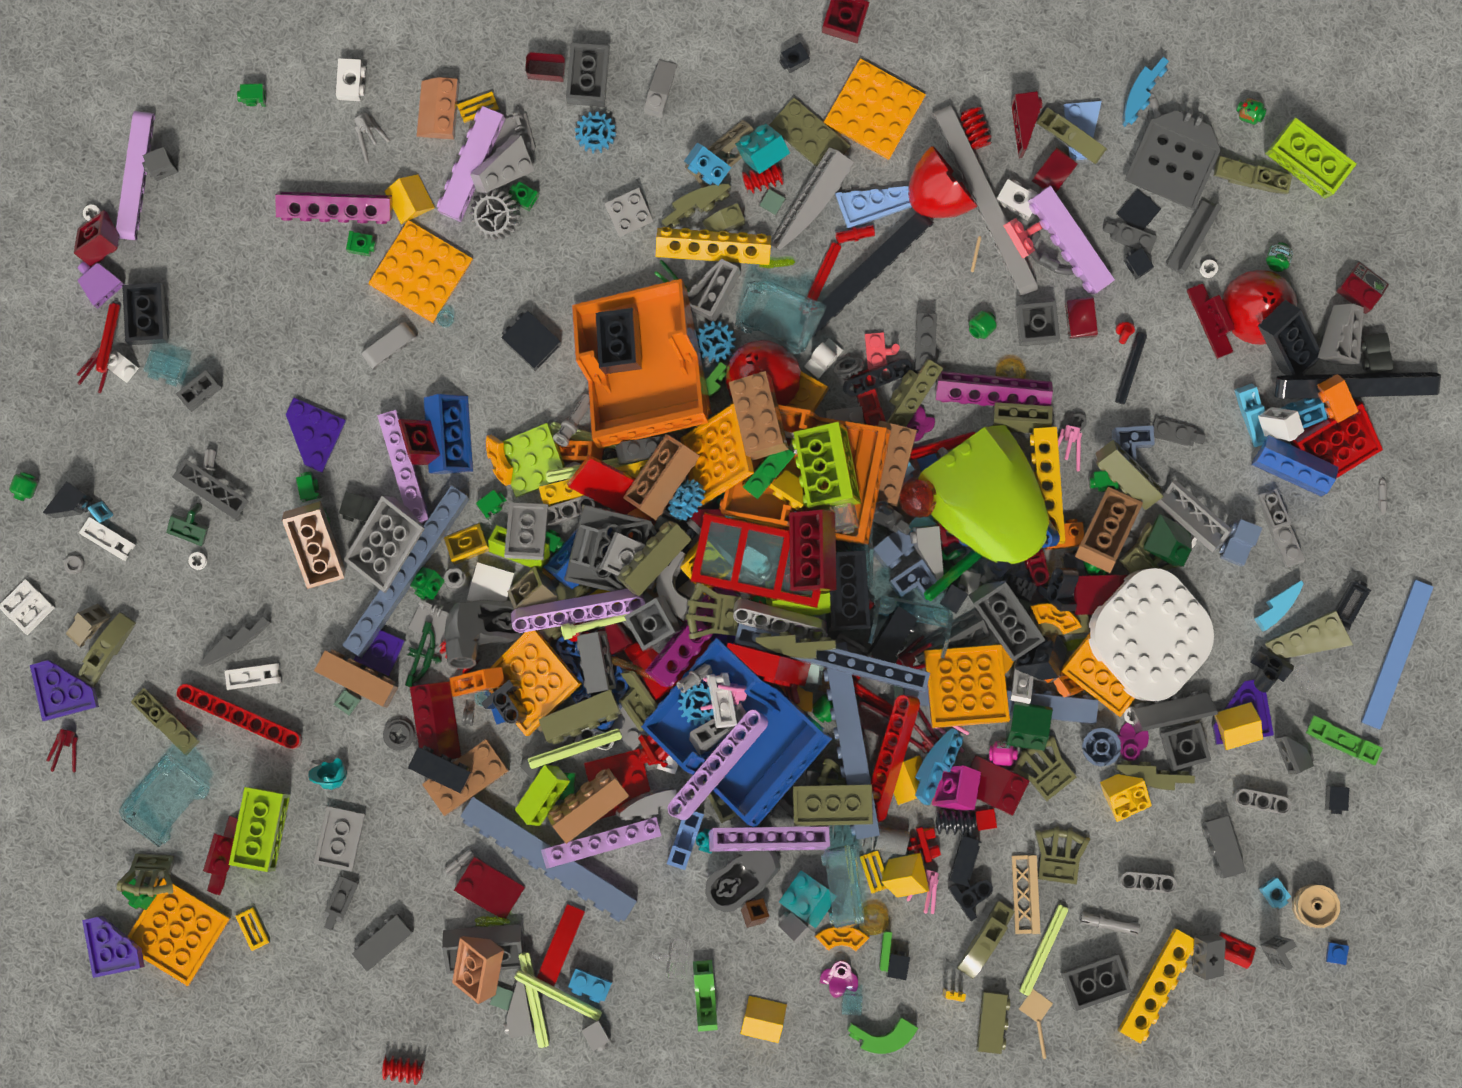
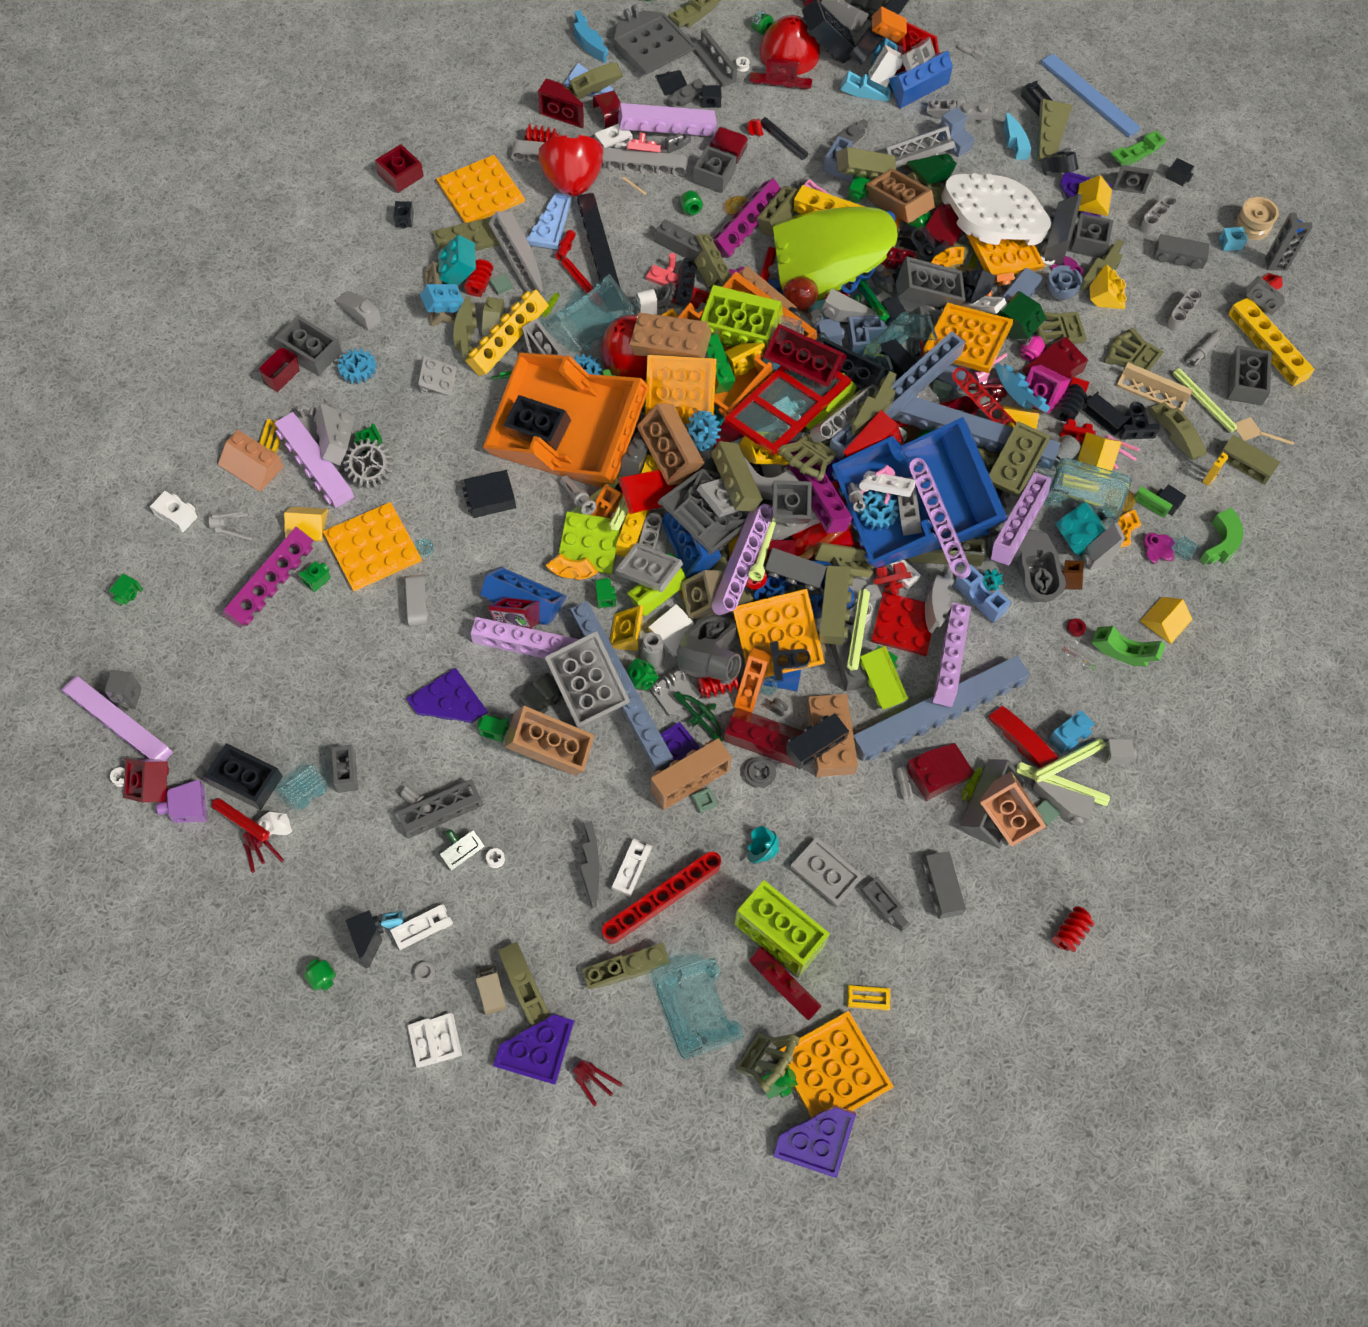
camera: 60 degrees left, 20 degrees down
(587, 805) = (915, 643): medium nougat brick -> none
(706, 940) = (1076, 627): none -> dark red tile
(1316, 454) = (918, 54): none -> light grey slope

